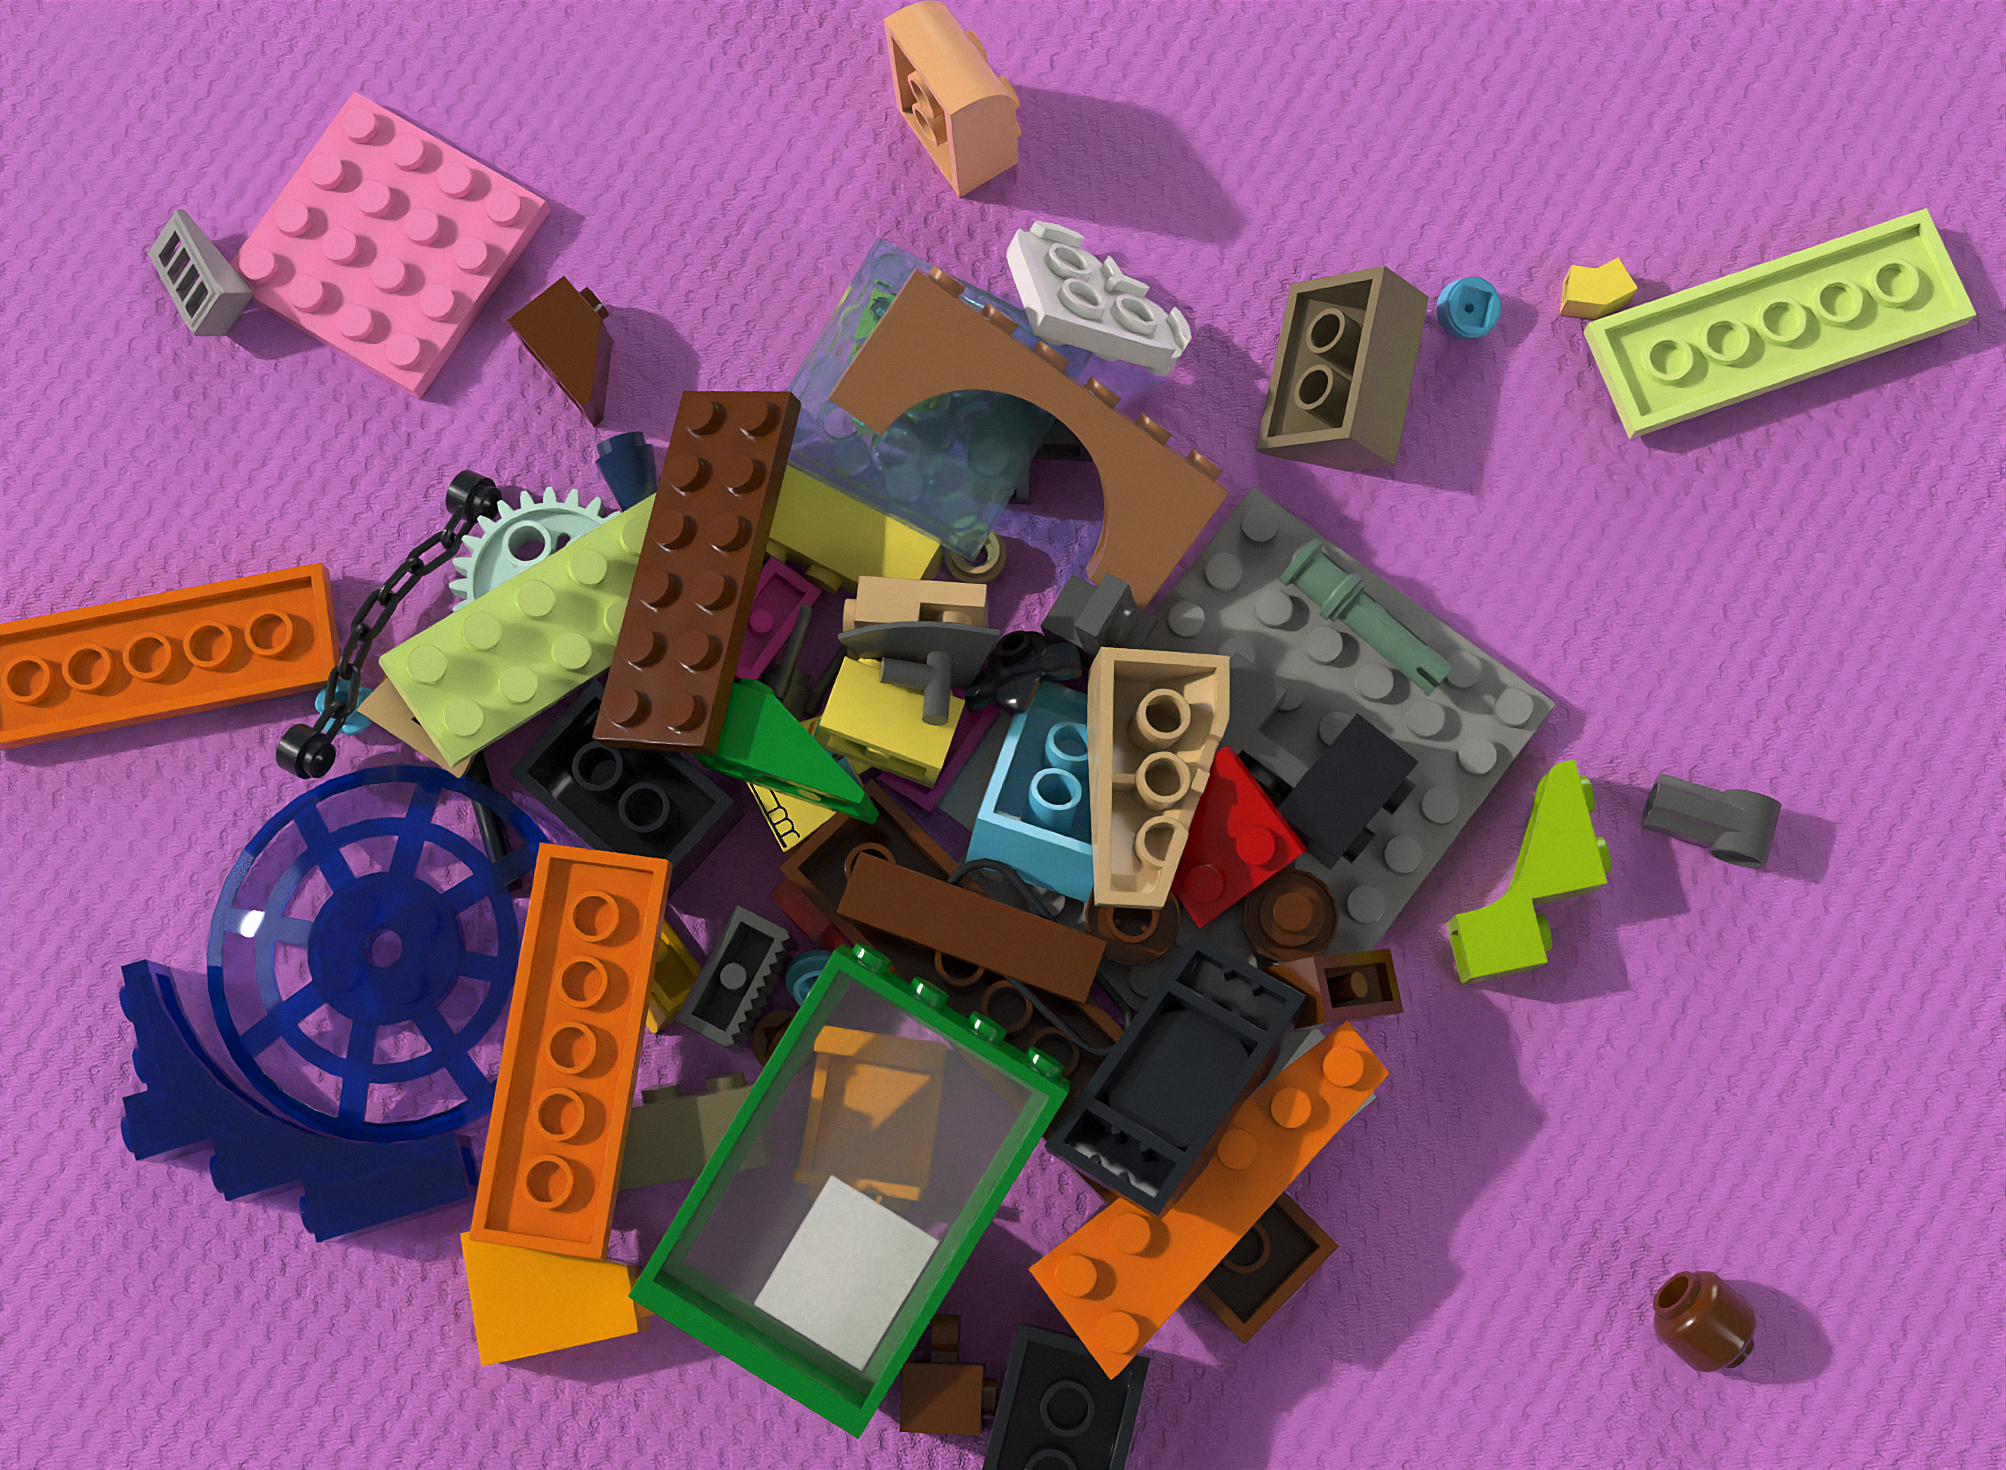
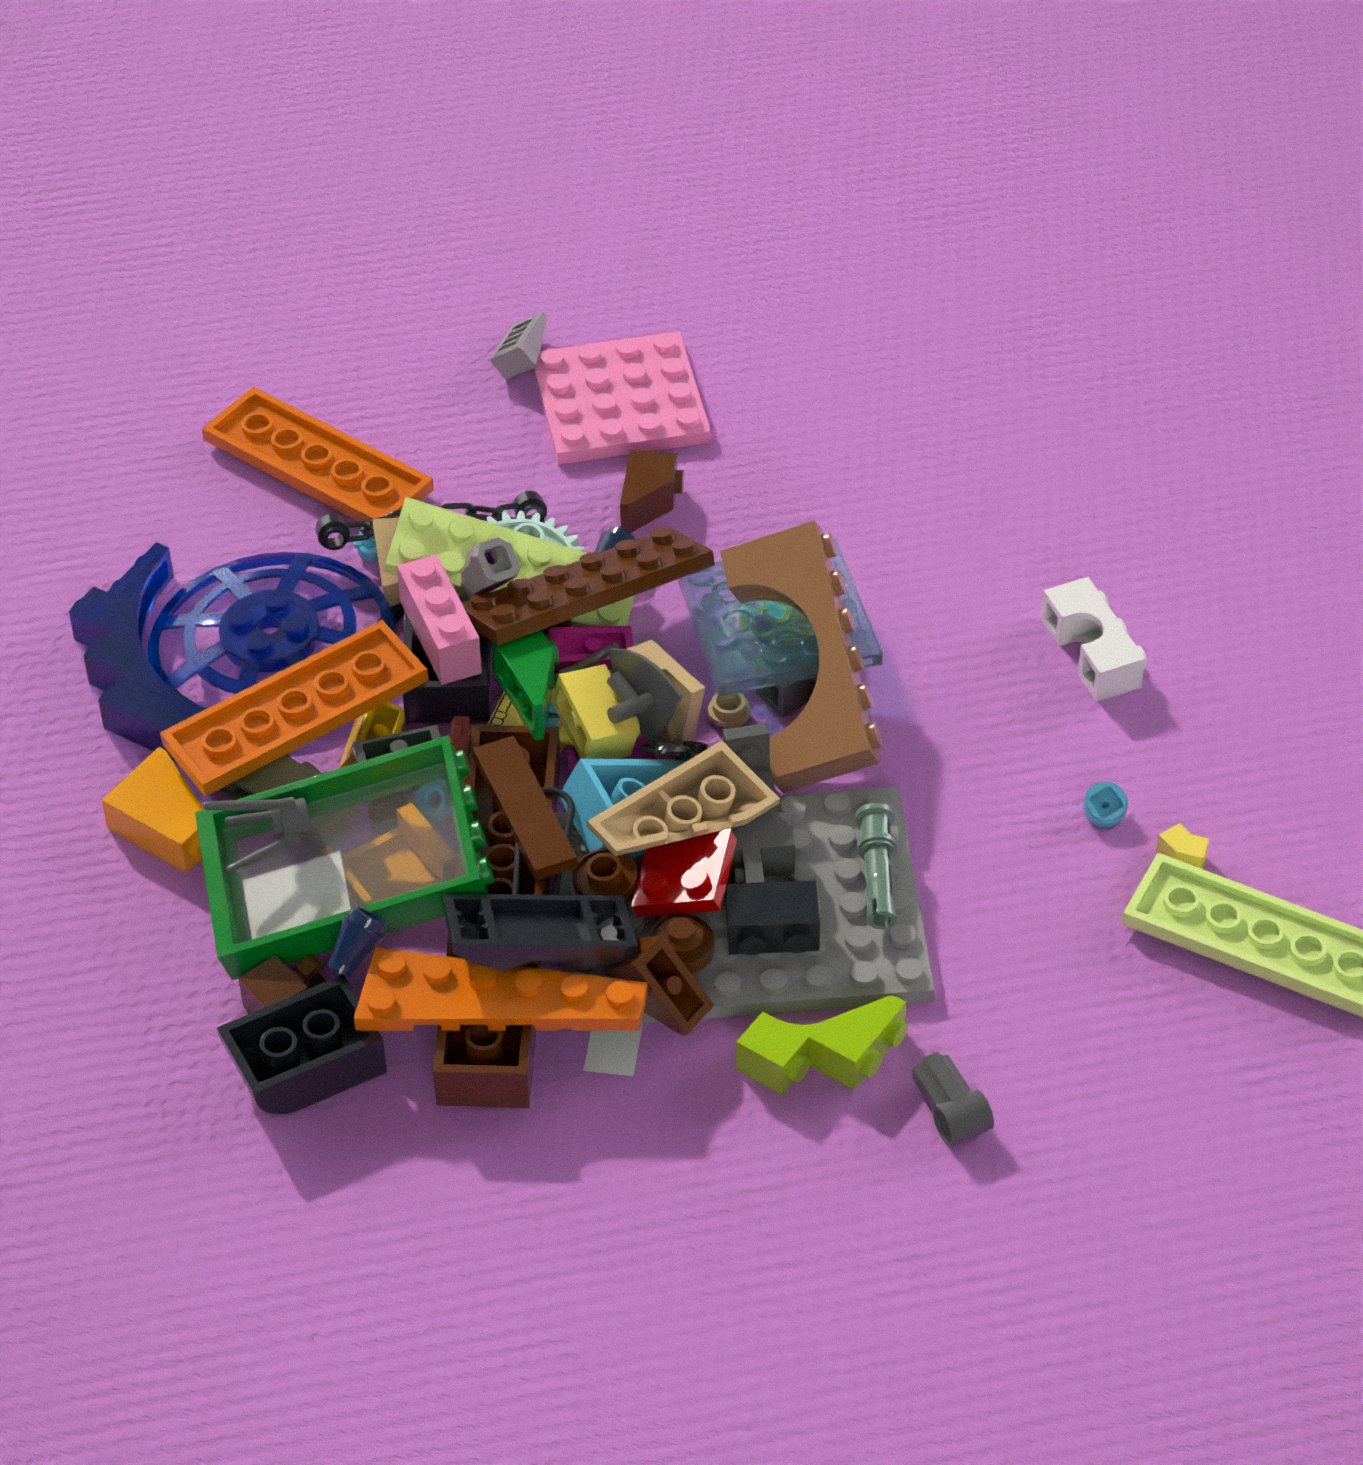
camera: 40 degrees right, 30 degrees down
(592, 665) = (489, 566): none -> light grey rock
(600, 778) = (439, 619): none -> bright pink brick
(747, 1211) = (286, 815): none -> dark grey plant
(844, 538) = (669, 624): light yellow brick -> none
(952, 95) = (945, 514): light nougat brick -> none
(1001, 1278) = (356, 939): none -> dark blue cone
(1091, 303) = (908, 643): white plate -> none
(1200, 81) = (1109, 659): none -> white arch
(1343, 370) = (1007, 778): dark tan slope -> none
(1704, 1321) = (666, 1287): reddish brown head -> none

